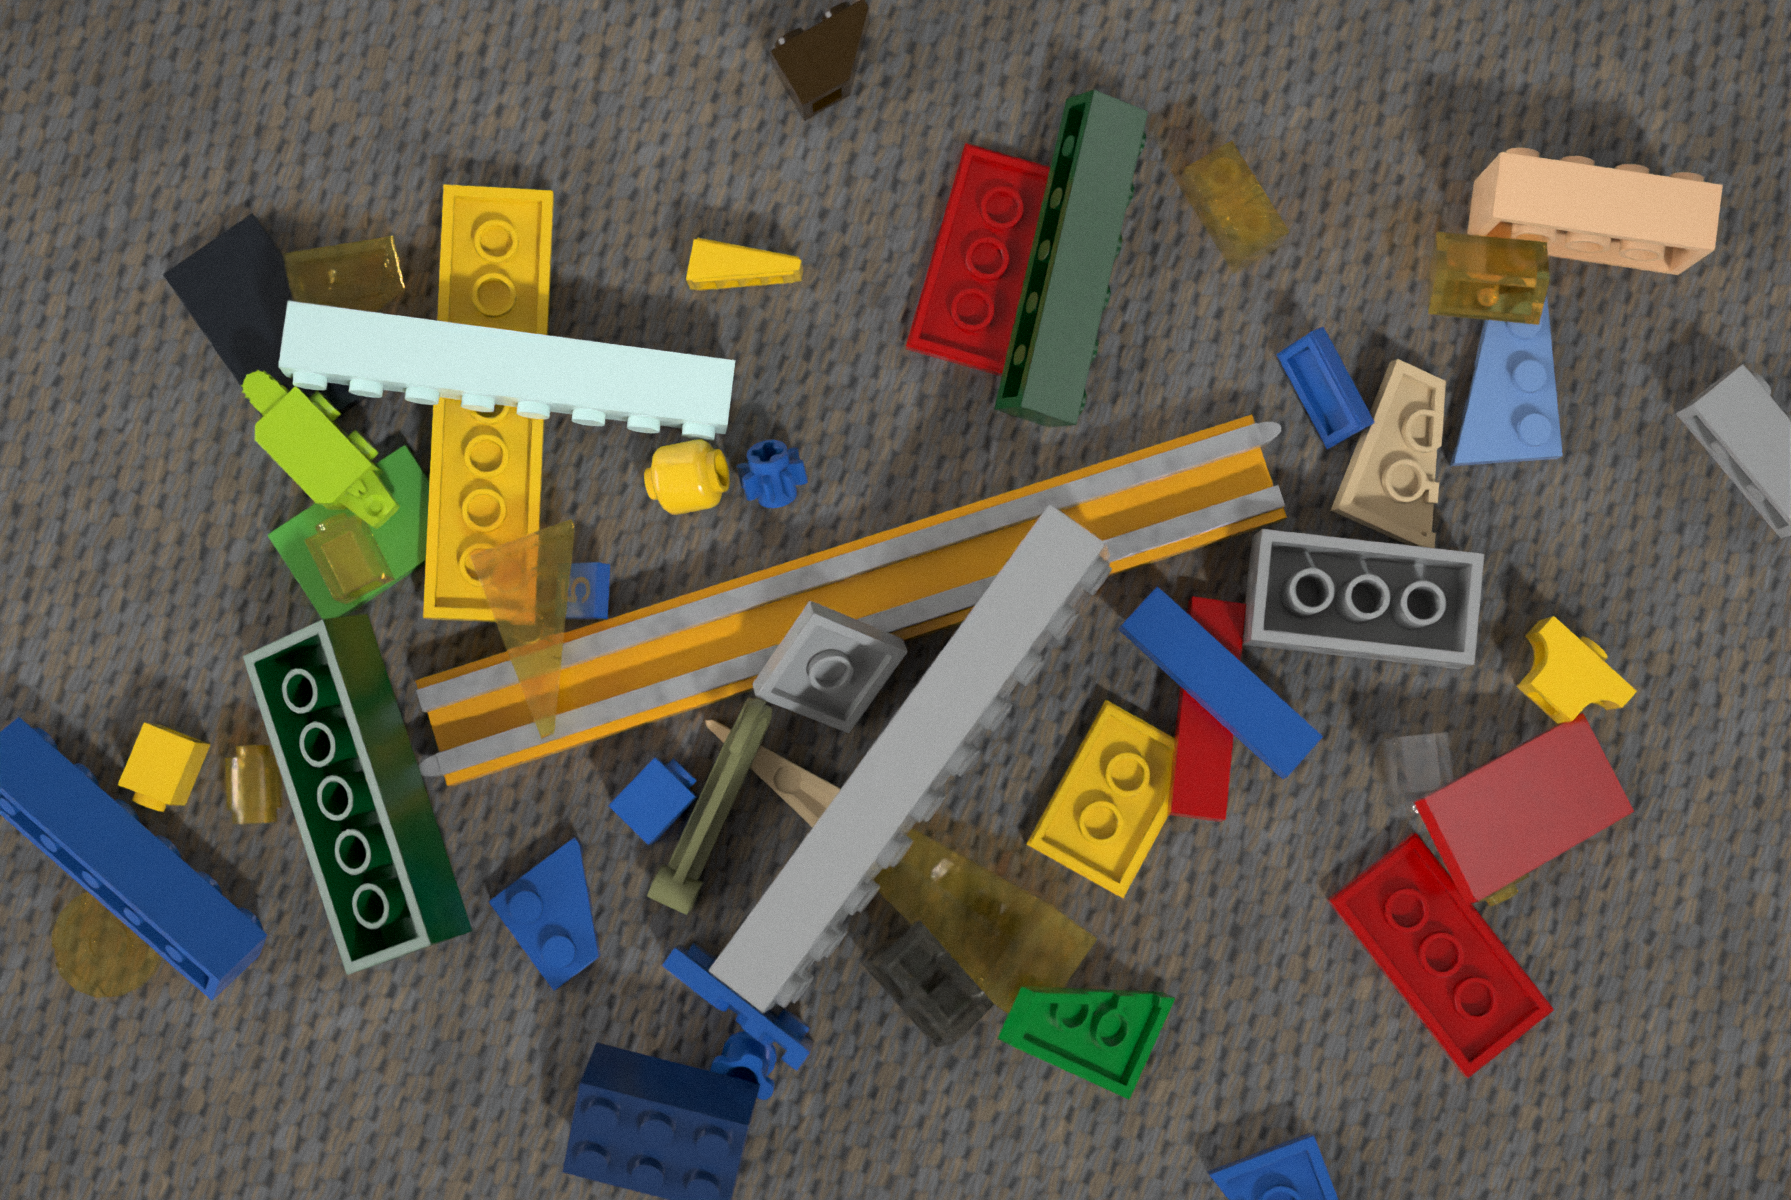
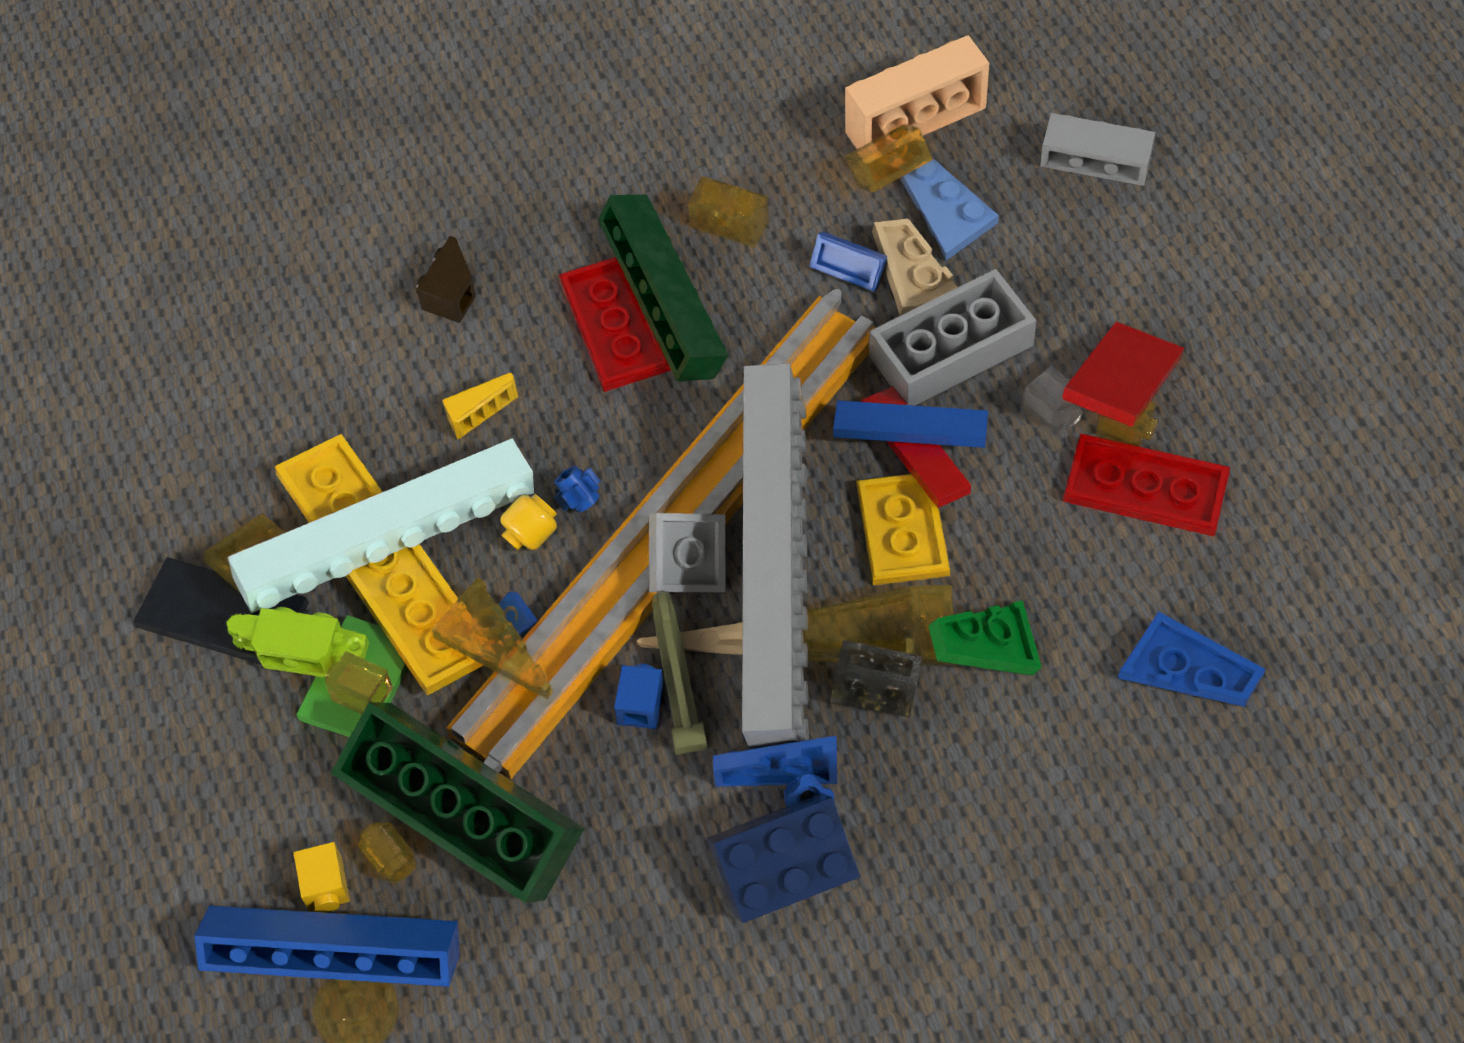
camera: 30 degrees left, 25 degrees down
(553, 915) = (626, 804): blue wing -> none
(1570, 673) = (1092, 305): yellow brick -> none

